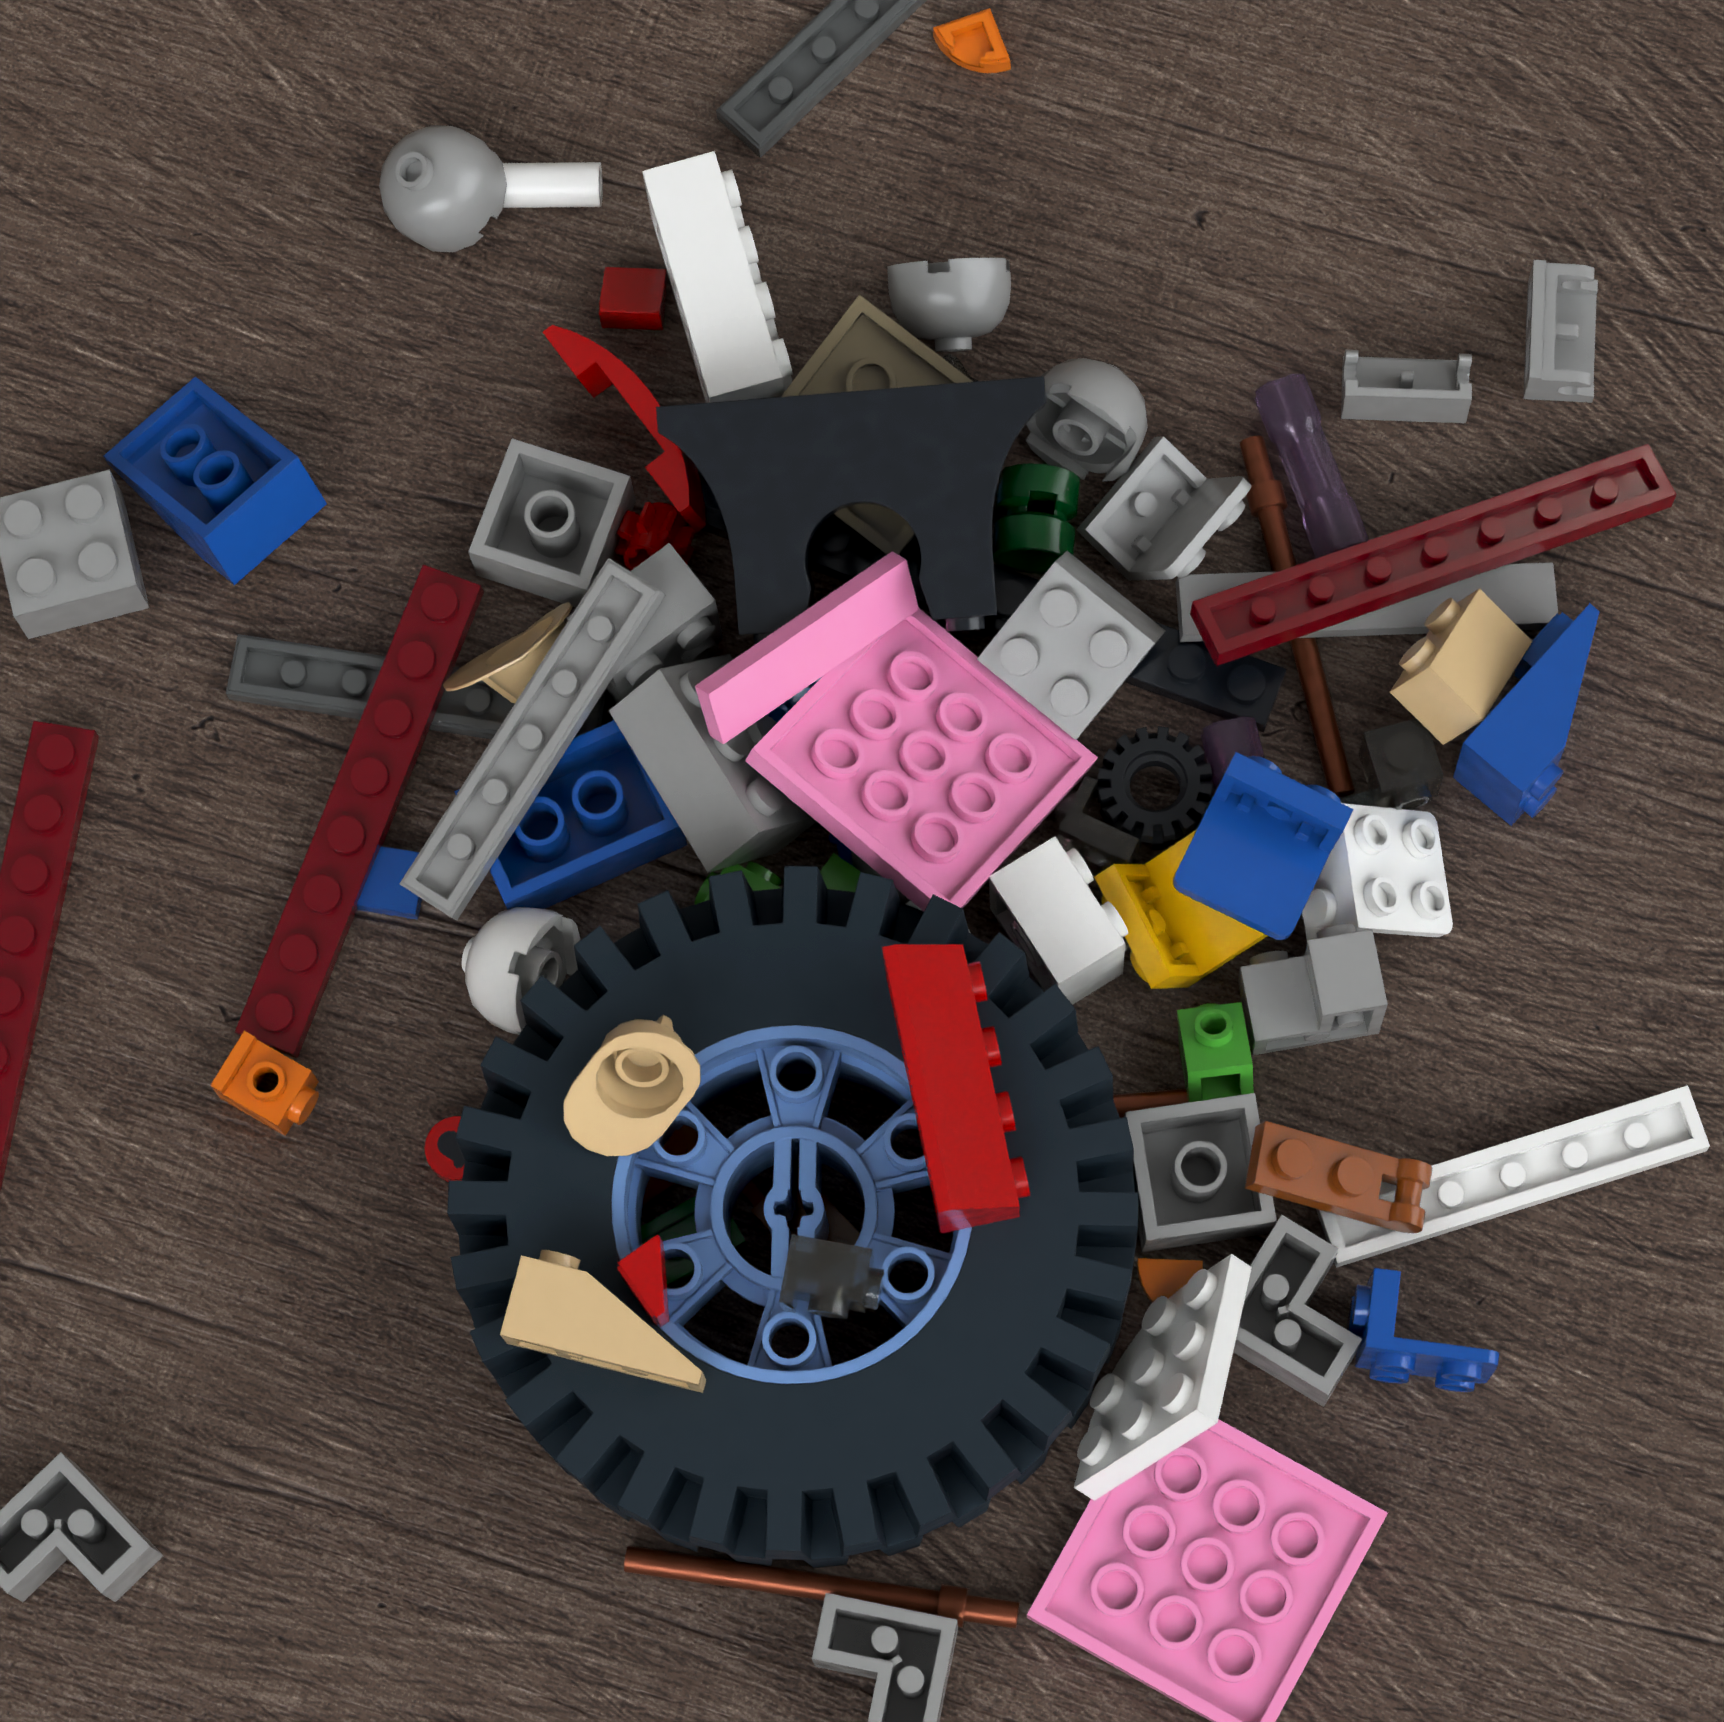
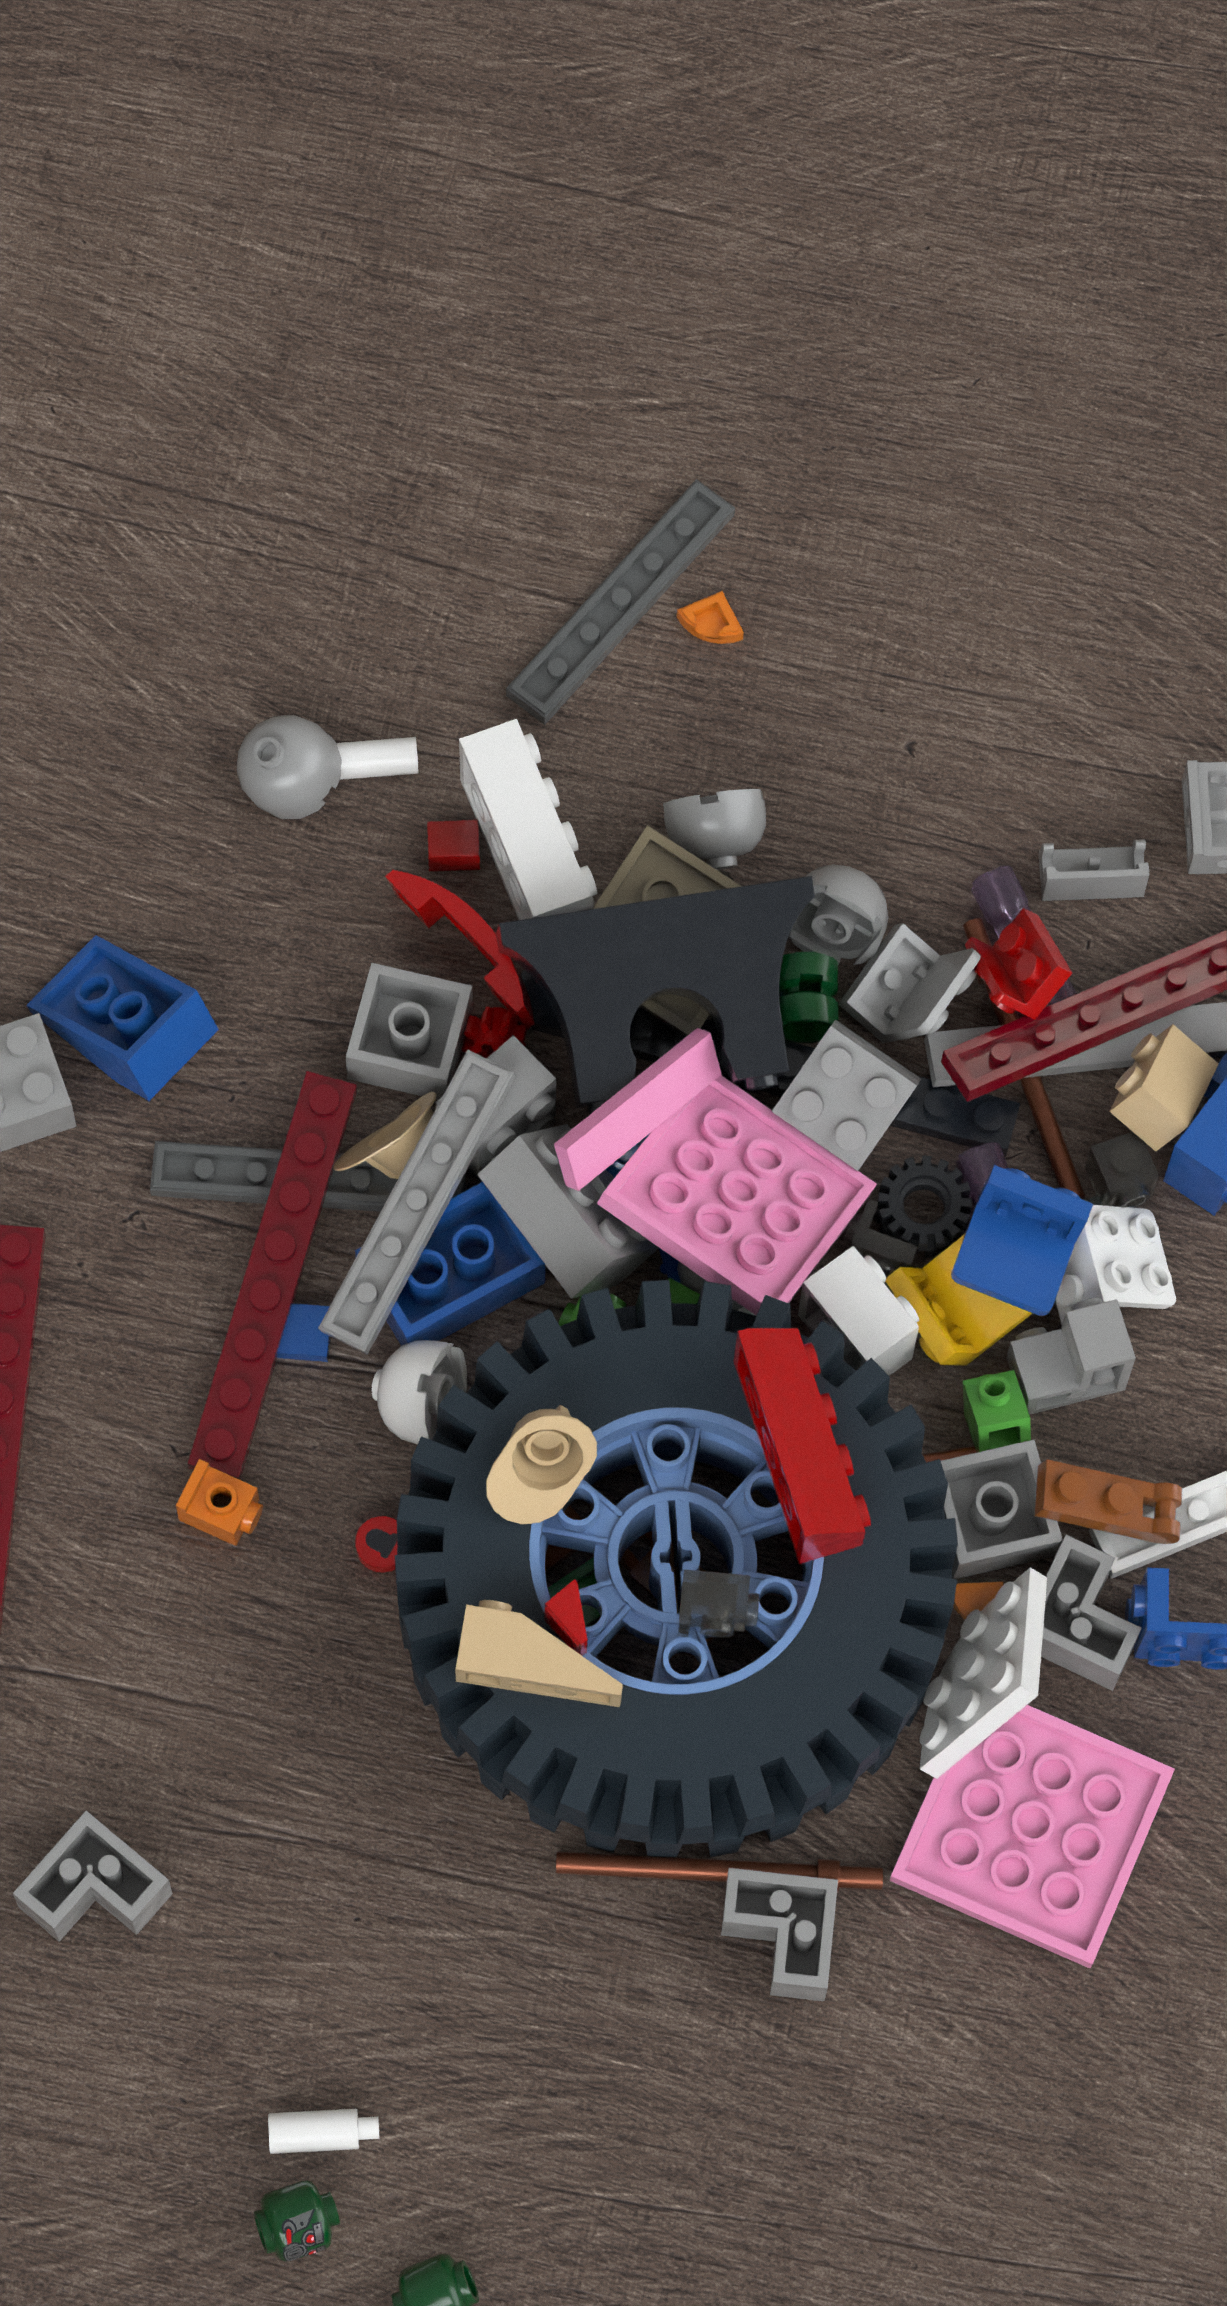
camera: 15 degrees left, 5 degrees down
(1301, 503) = (1022, 966): none -> red bracket

